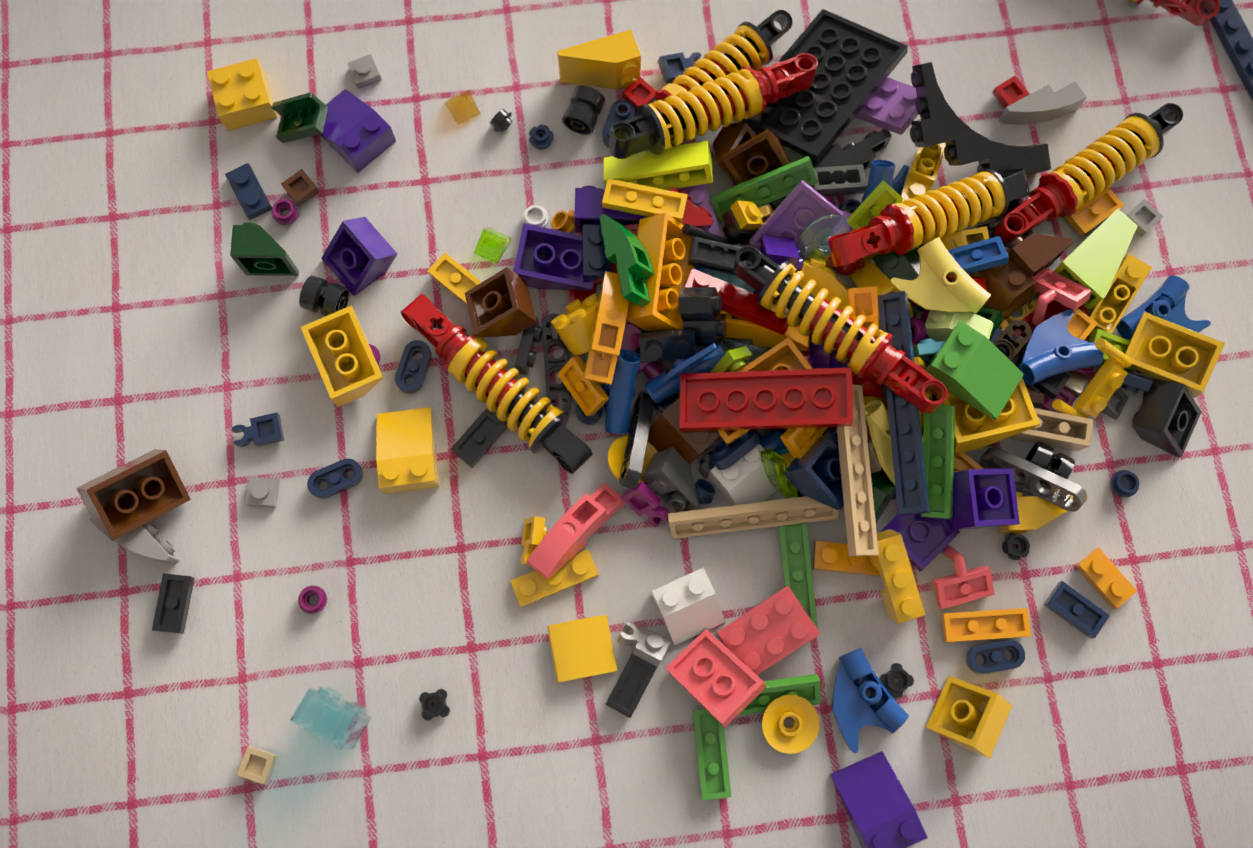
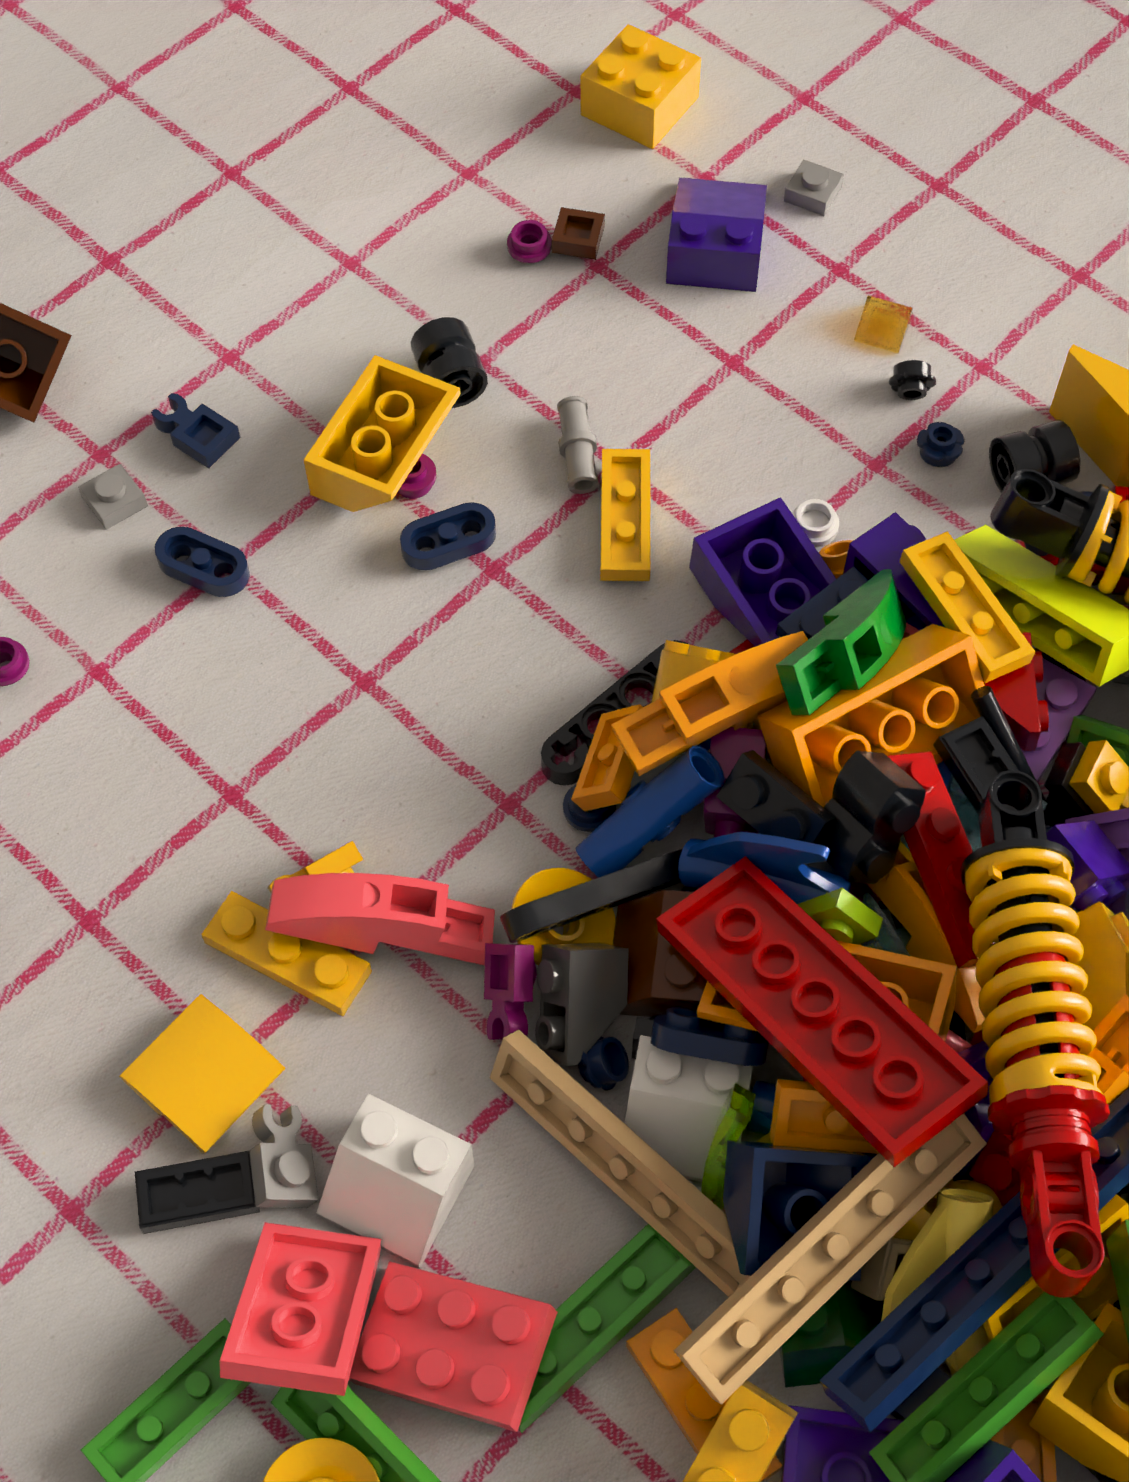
camera: 55 degrees right, 15 degrees down
(248, 191) = (519, 188): dark blue plate -> none
(259, 253) = (439, 245): dark green slope -> none
(300, 117) = (677, 161): dark green bracket -> none
(358, 254) = (549, 356): dark purple slope -> none
(406, 451) = (313, 618): yellow slope -> none
(413, 278) = (577, 445): none -> light grey pin
(479, 438) = (415, 692): black plate -> none
(492, 244) = (720, 500): clear neon green slope -> none
(498, 387) = (511, 660): piece -> none
(500, 305) = (632, 560): reddish brown slope -> none
(526, 356) = (611, 648): black plate -> none

